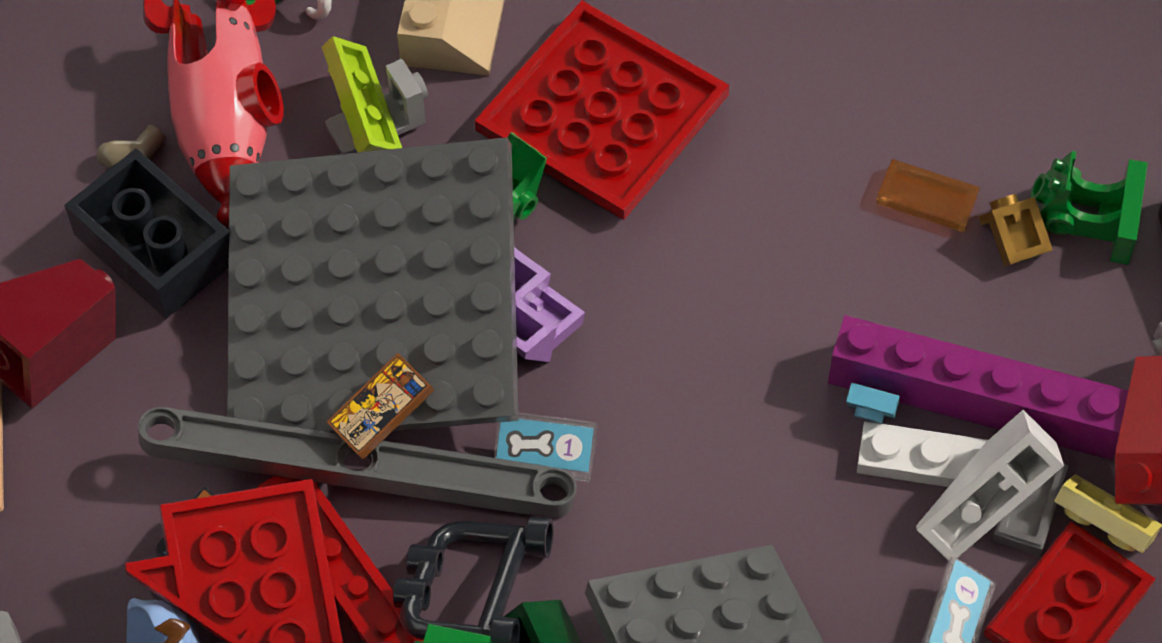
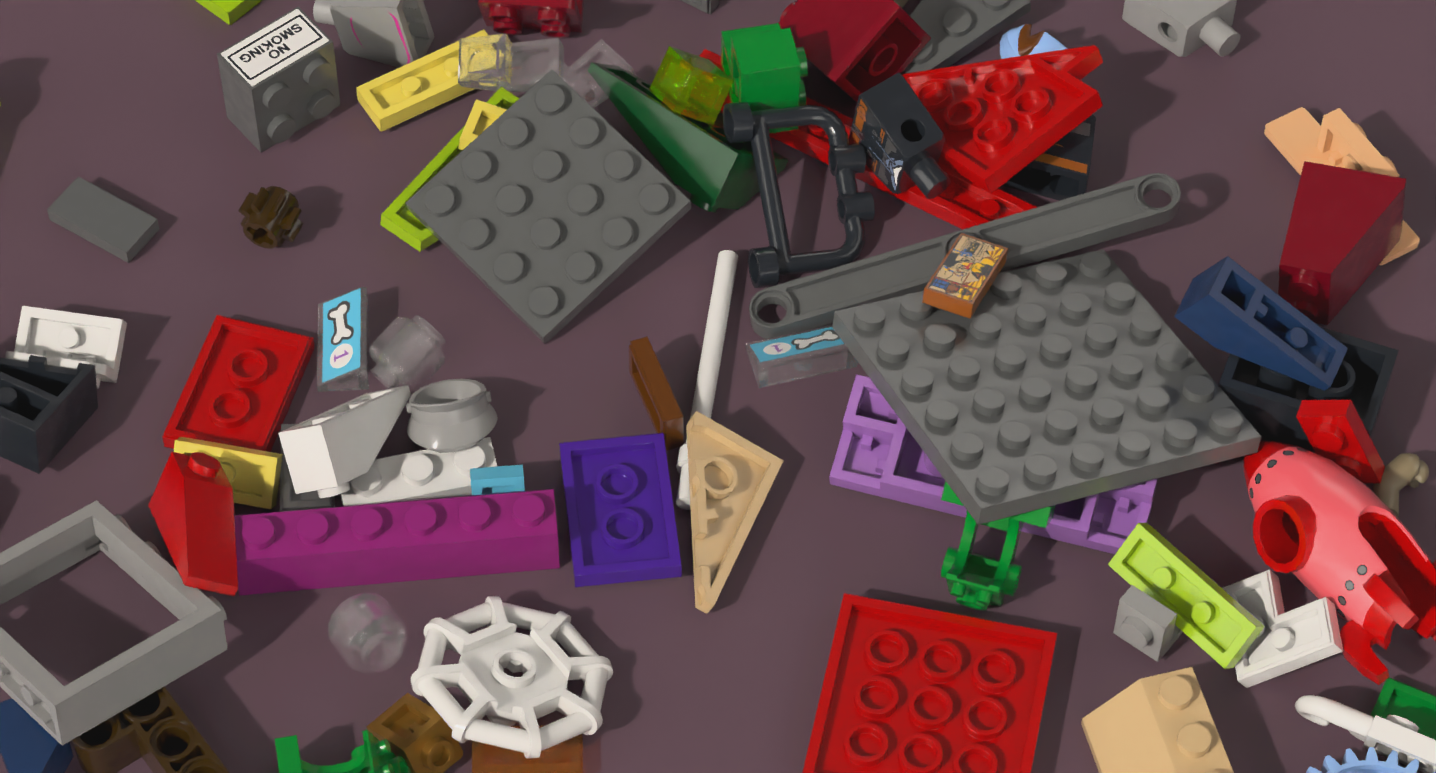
camera: 155 degrees right, 5 degrees down
(167, 154) = (1341, 436): none -> red plate
(174, 243) = (1256, 324): none -> dark blue slope
(300, 43) = (1289, 637): none -> white tile
(357, 561) = (899, 138): none -> black torso
(677, 332) = (726, 493): none -> tan wing
(686, 385) = (710, 358): none -> white bar
(696, 445) = (656, 392): none -> reddish brown tile
(772, 357) = (620, 510): none -> dark purple plate
(887, 487) = (450, 415): none -> light grey piece
(904, 567) = (407, 353): none -> clear head
(930, 257) = (510, 698): none -> white plate
(1027, 320) = (368, 633): none -> clear head

